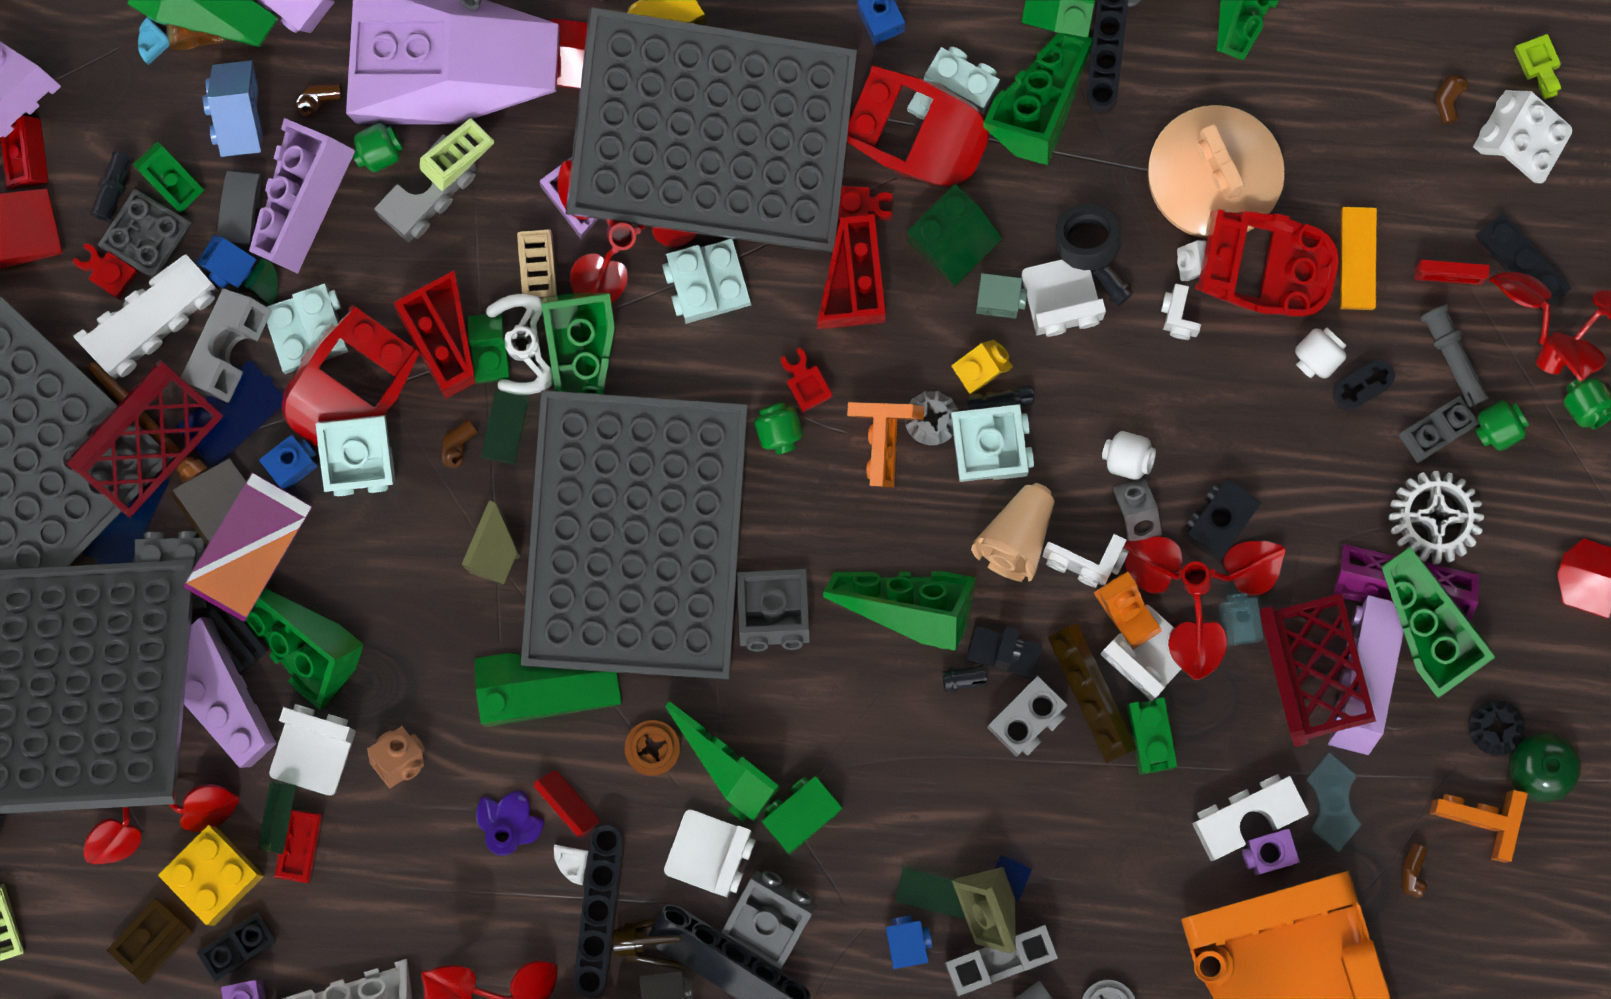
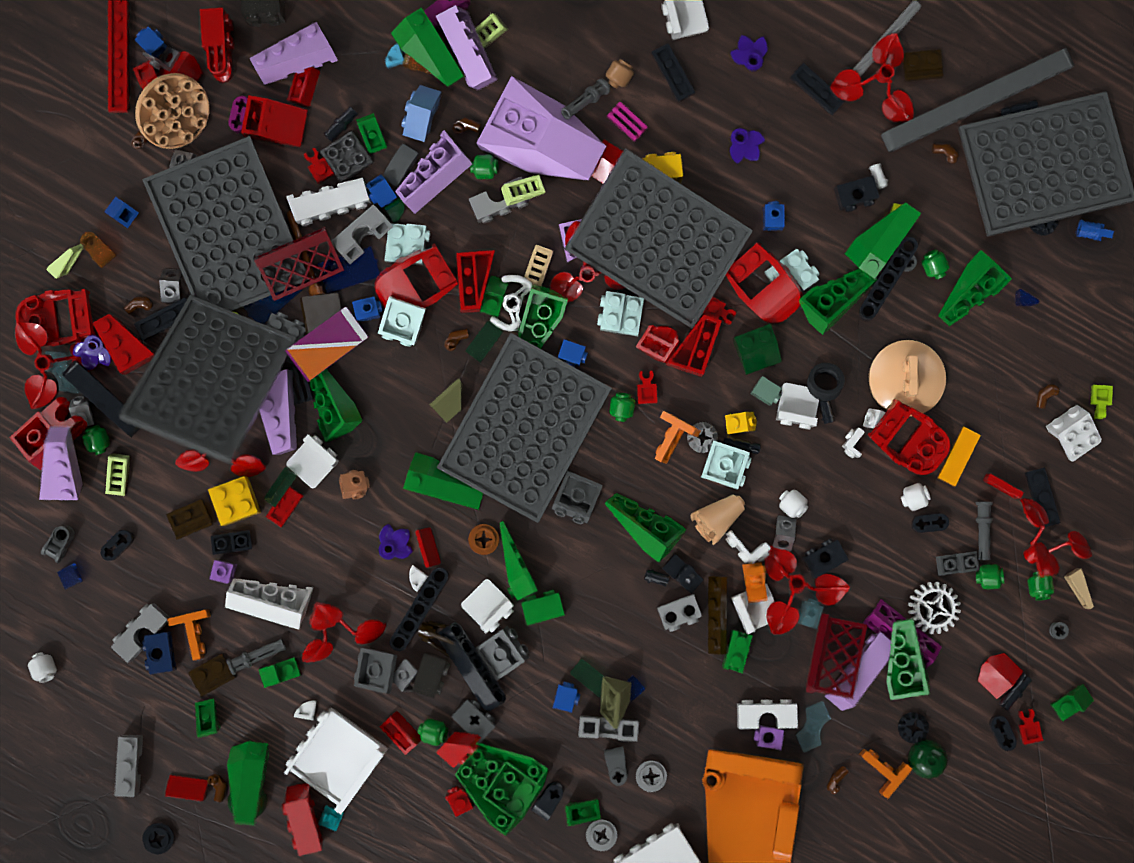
camera: 20 degrees right, 5 degrees up
(658, 378) = (572, 353): none -> blue brick
(790, 299) = (659, 342): none -> red slope

